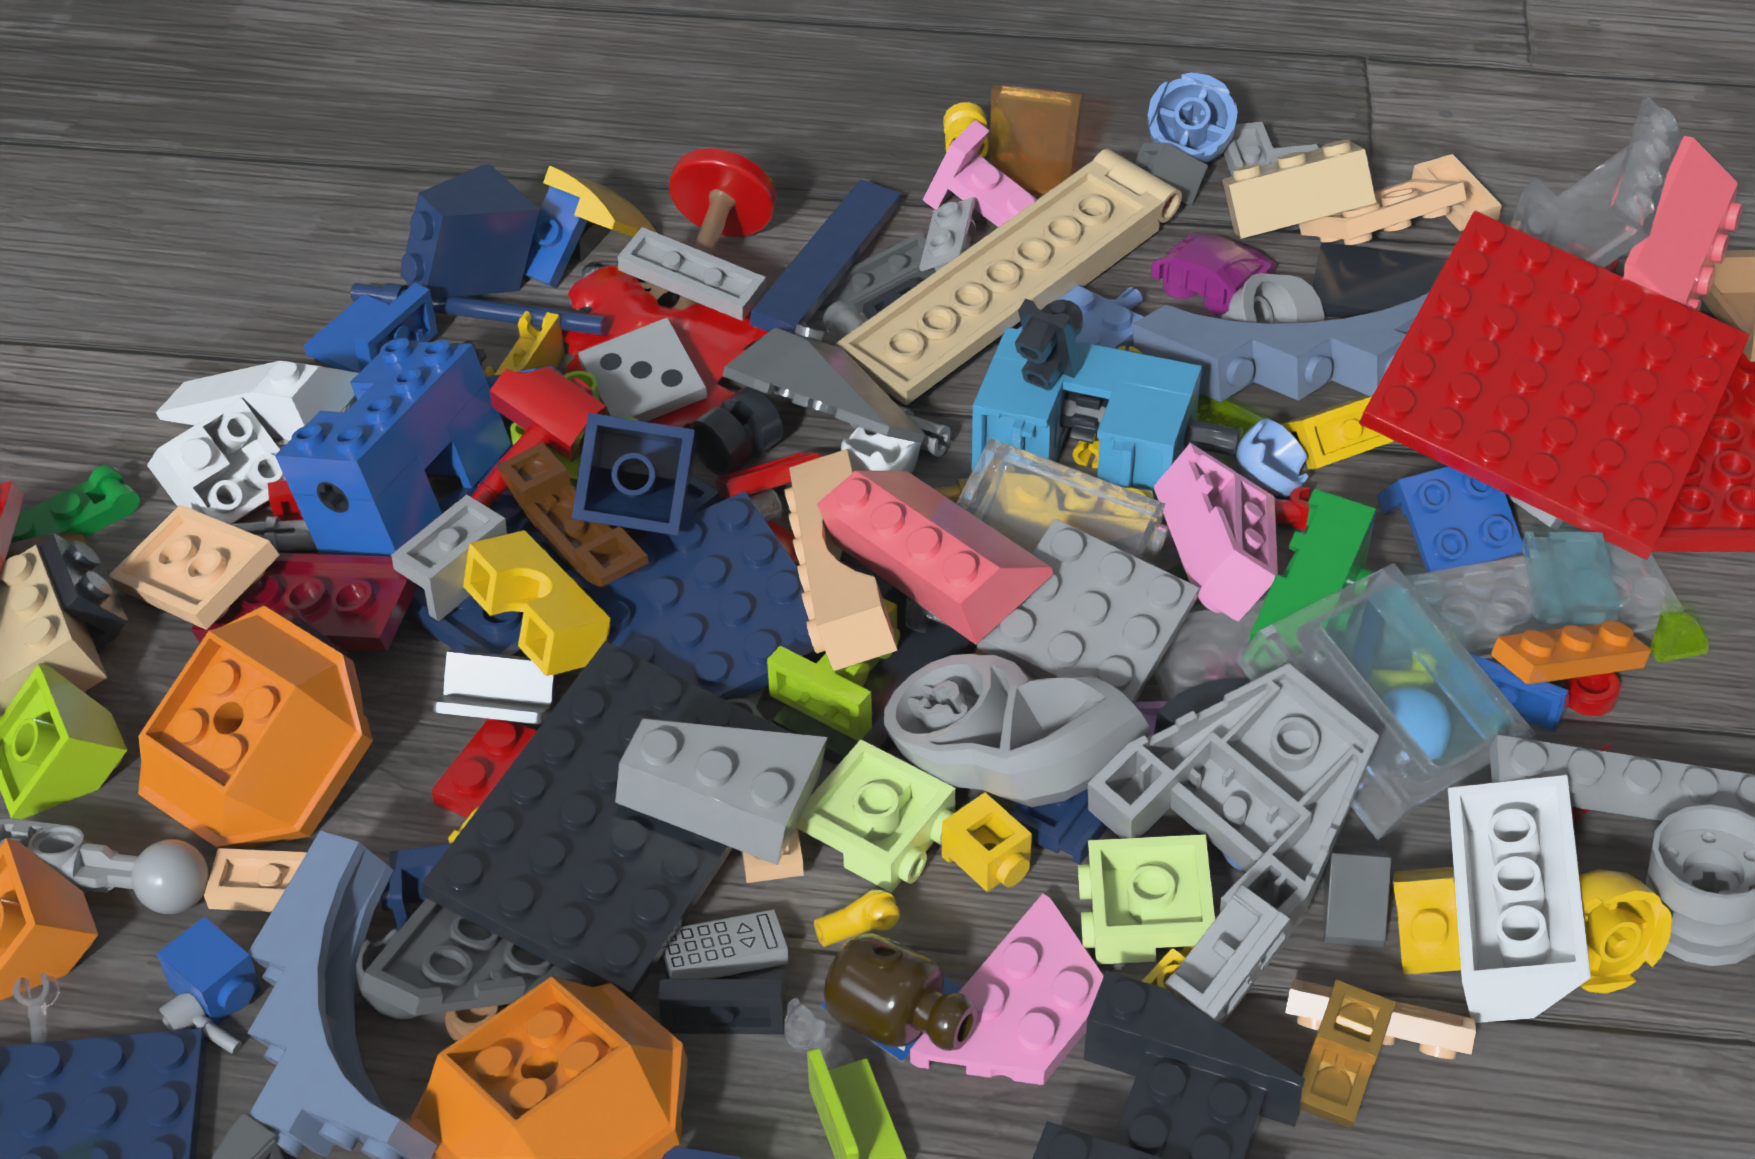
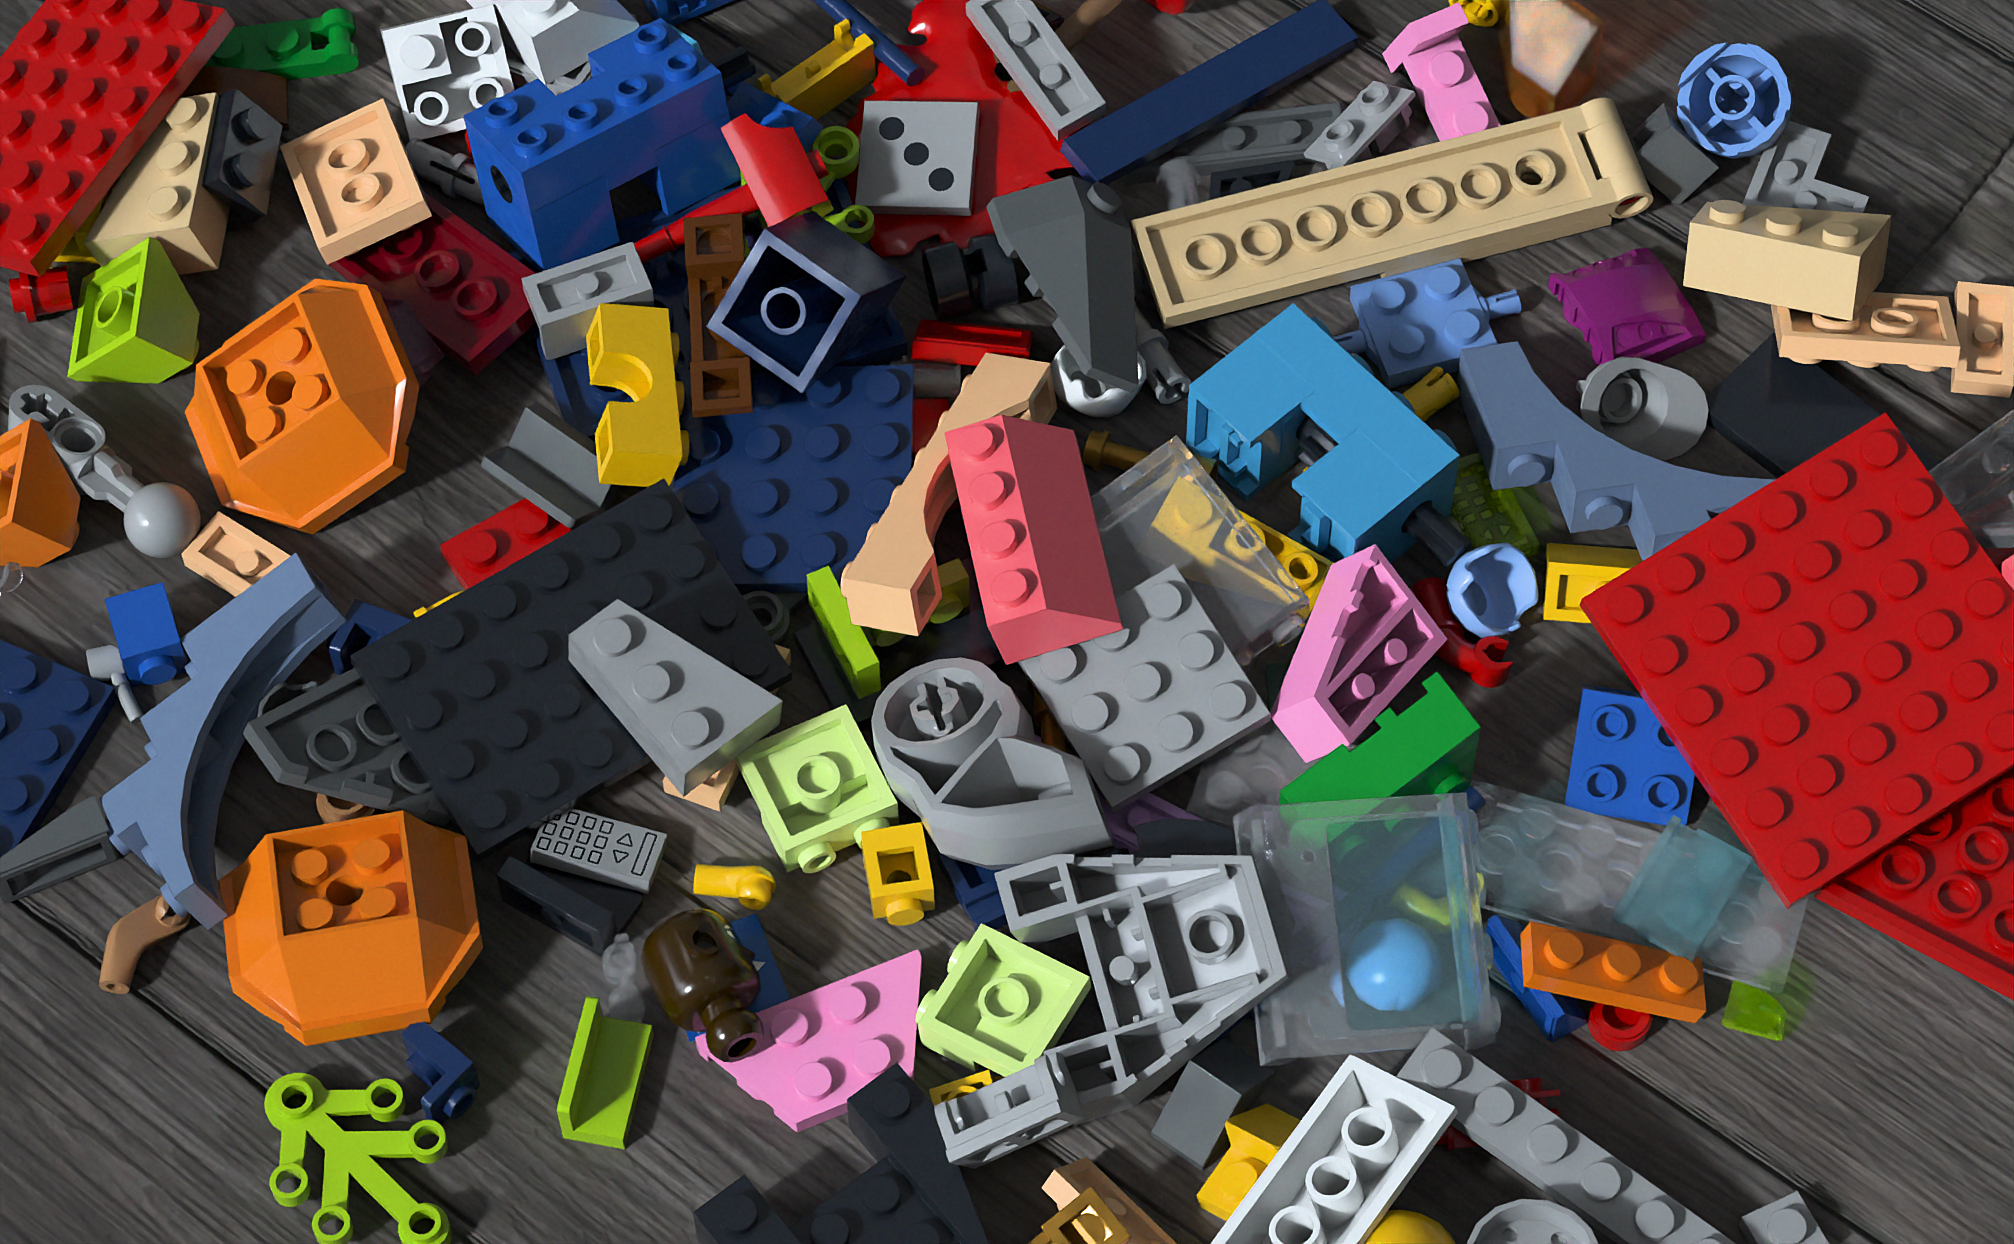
camera: 30 degrees right, 15 degrees up
(1049, 341) = (1290, 360): black hips -> none

